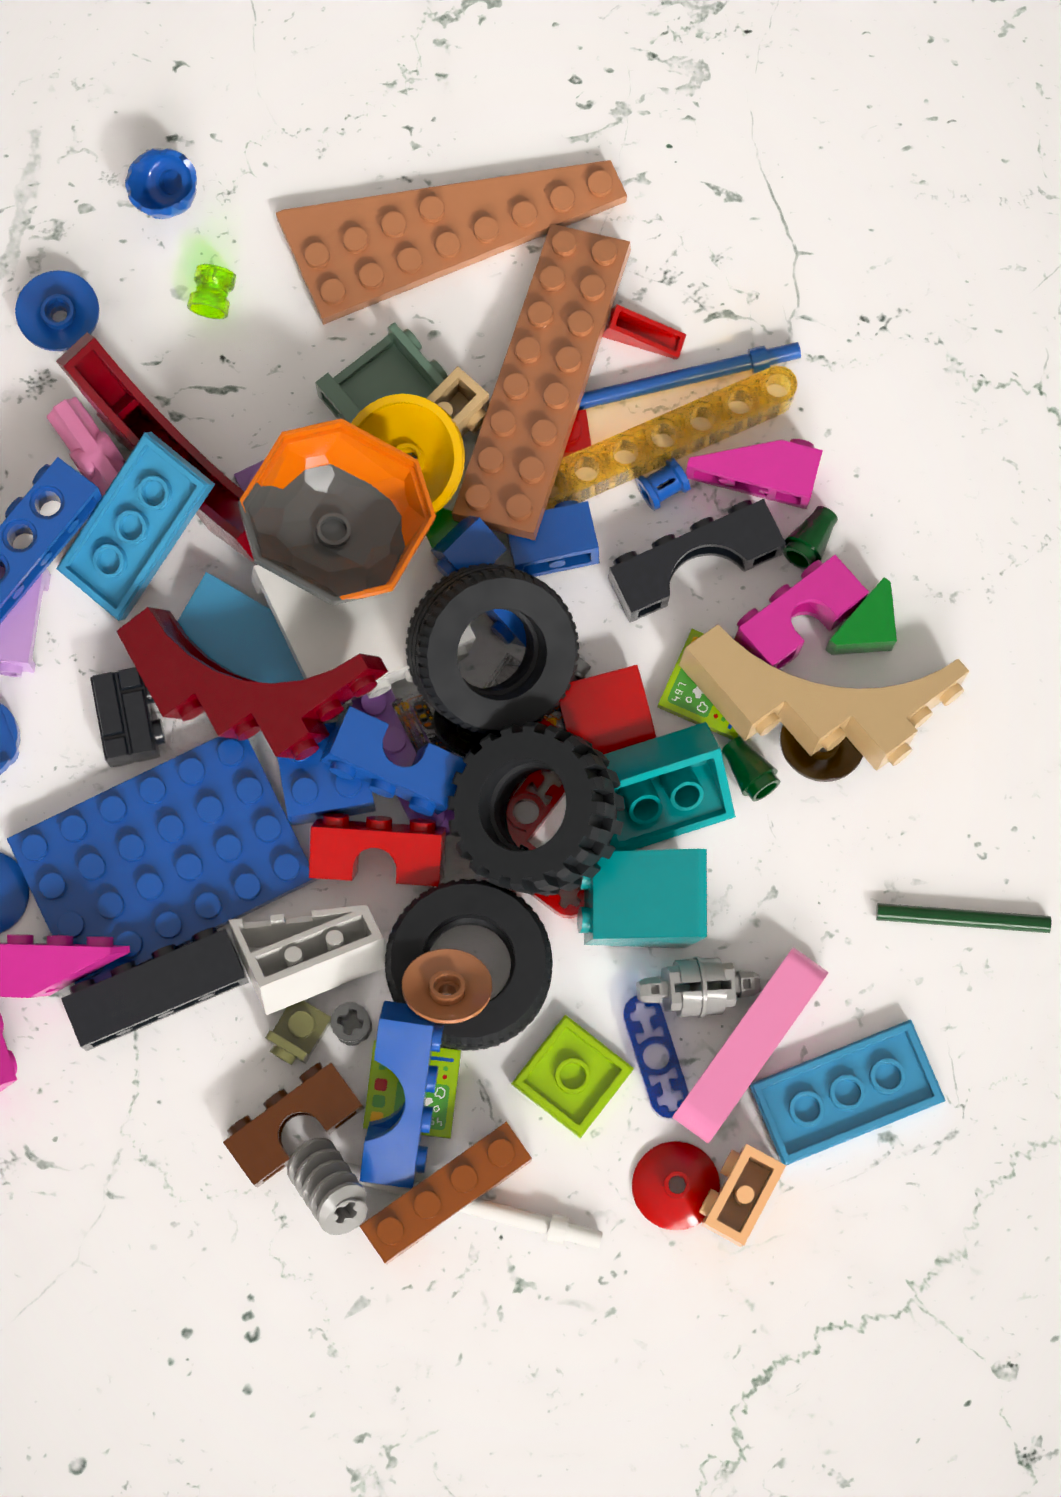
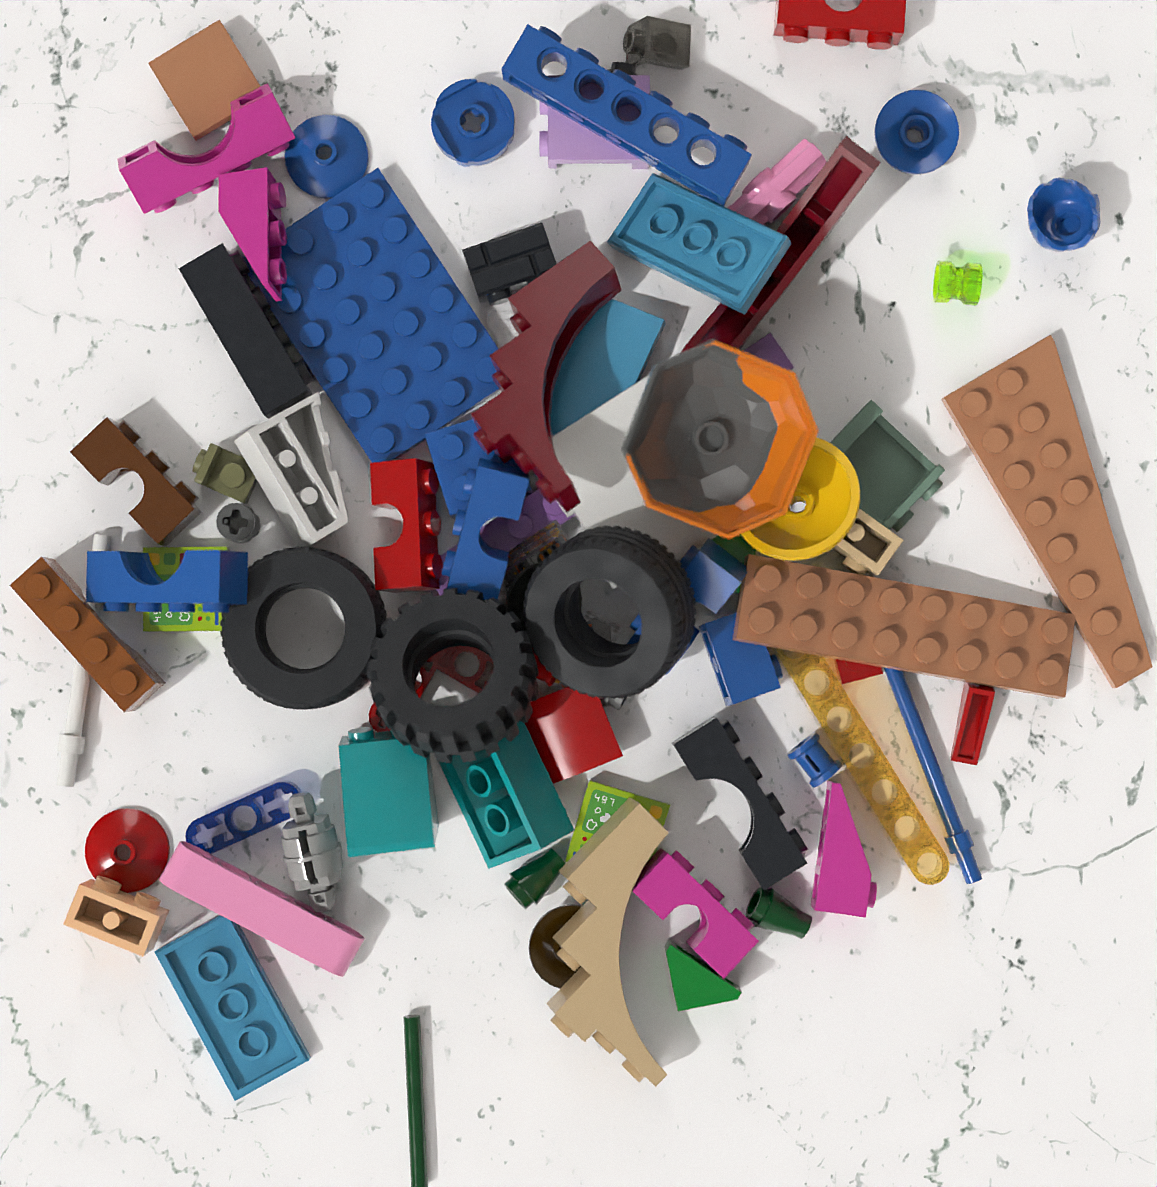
camera: 90 degrees right, 10 degrees up
(328, 1186) = (75, 522): light grey piece -> none
(450, 973) = (283, 607): nougat dish -> none
(572, 1076) = (217, 740): lime tile -> none

